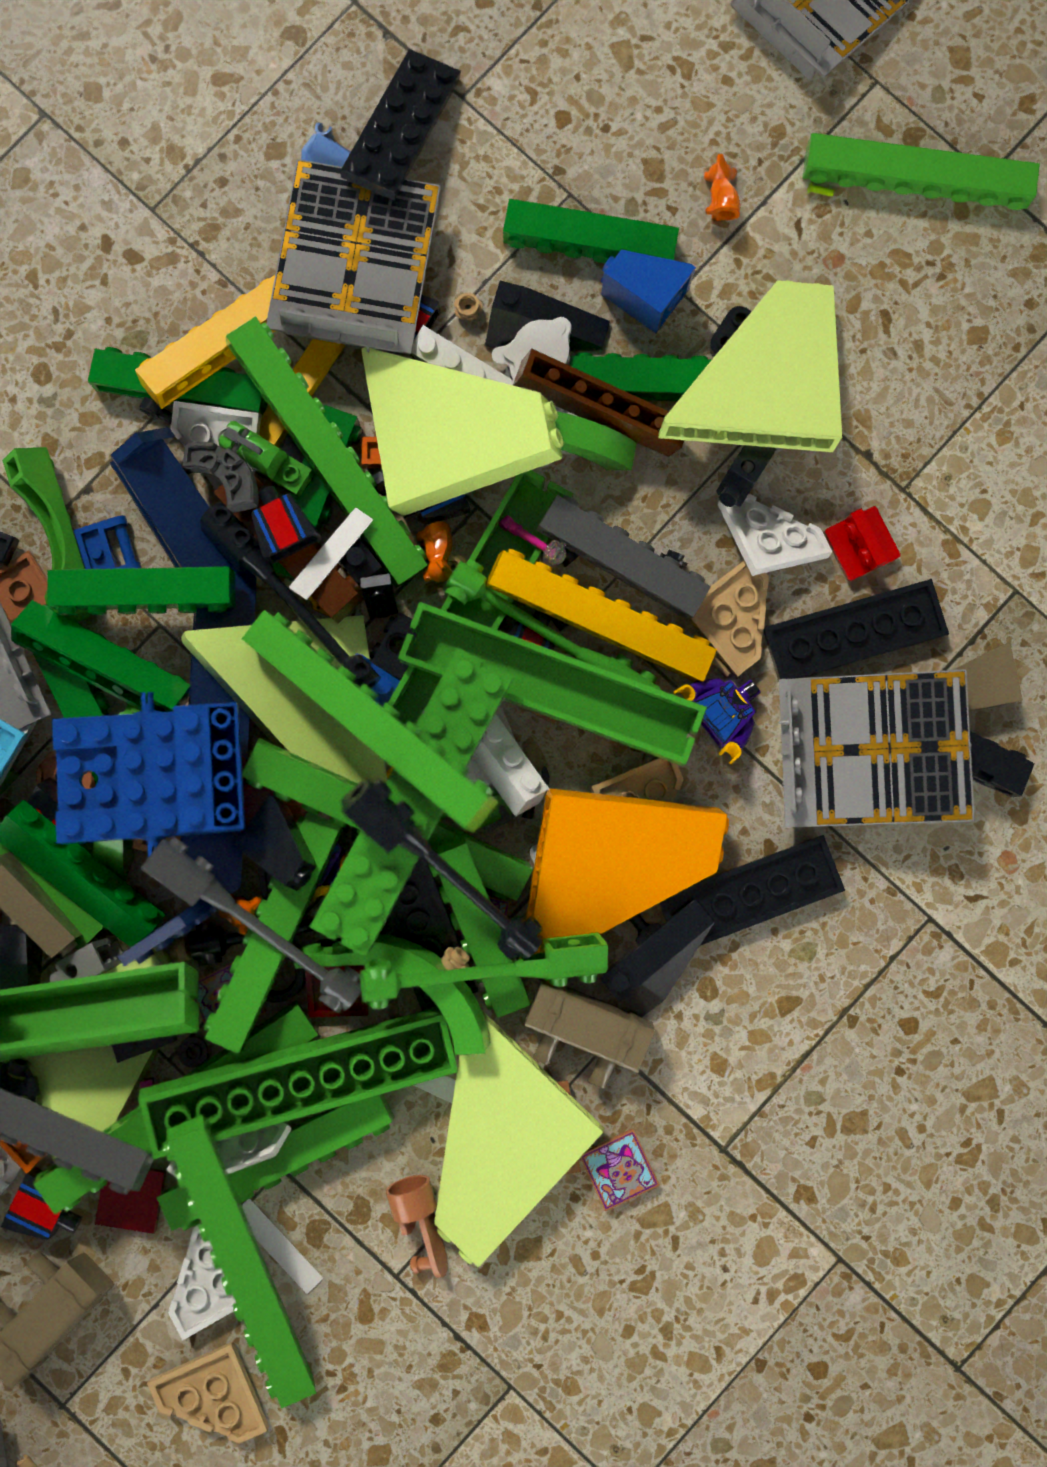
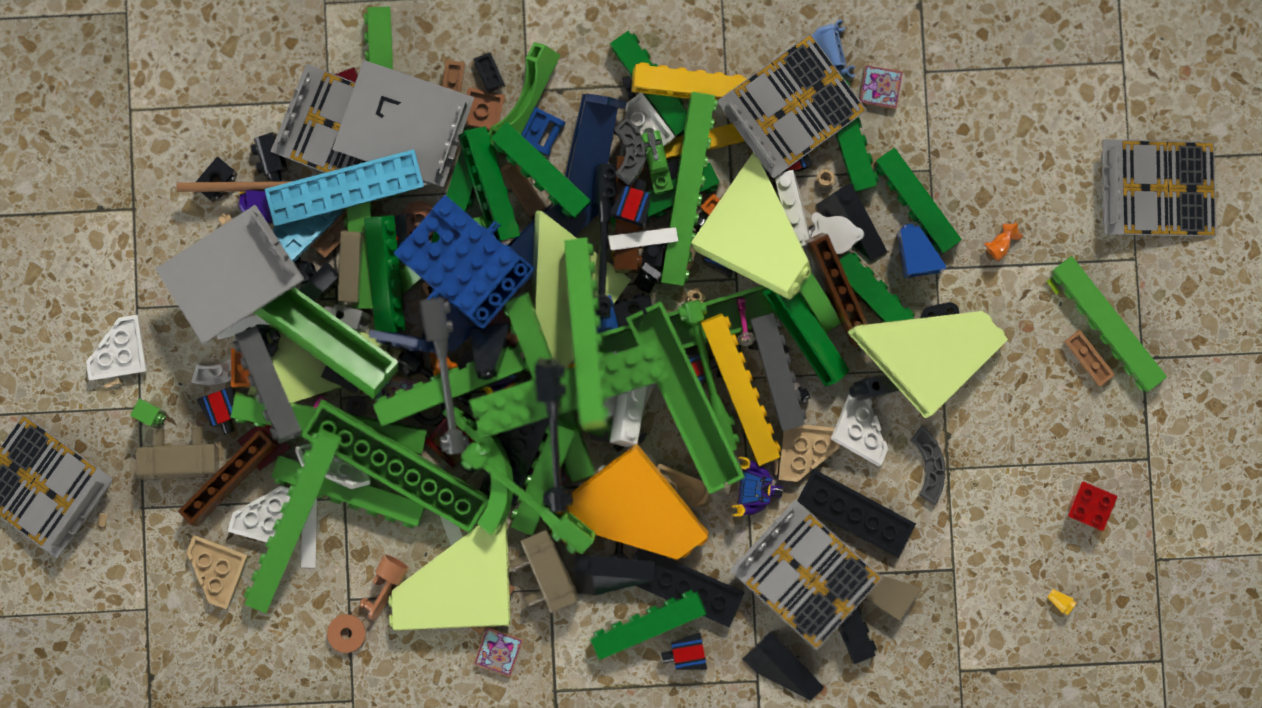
camera: 45 degrees right, 0 degrees up
(123, 1284) = (227, 478): none -> reddish brown brick
(144, 633) = (522, 189): none -> medium nougat plate
(400, 124) = (878, 61): black plate -> none
(430, 1337) = (336, 627): none -> nougat tile
(438, 545) = (700, 279): orange animal -> none
(440, 157) = (881, 87): none -> tile
(455, 958) = (519, 479): tan plate -> none
(477, 251) = (855, 156): none -> green brick
(617, 487) = (809, 336): none -> green brick
(755, 977) = (648, 625): none -> green brick
(827, 964) = (686, 653): none -> torso
(862, 543) = (901, 475): red bracket -> none
(887, 497) = (933, 462): none -> dark grey tile
(933, 877) = (779, 665): none -> black wedge
(935, 227) = (1089, 358): none -> medium nougat plate

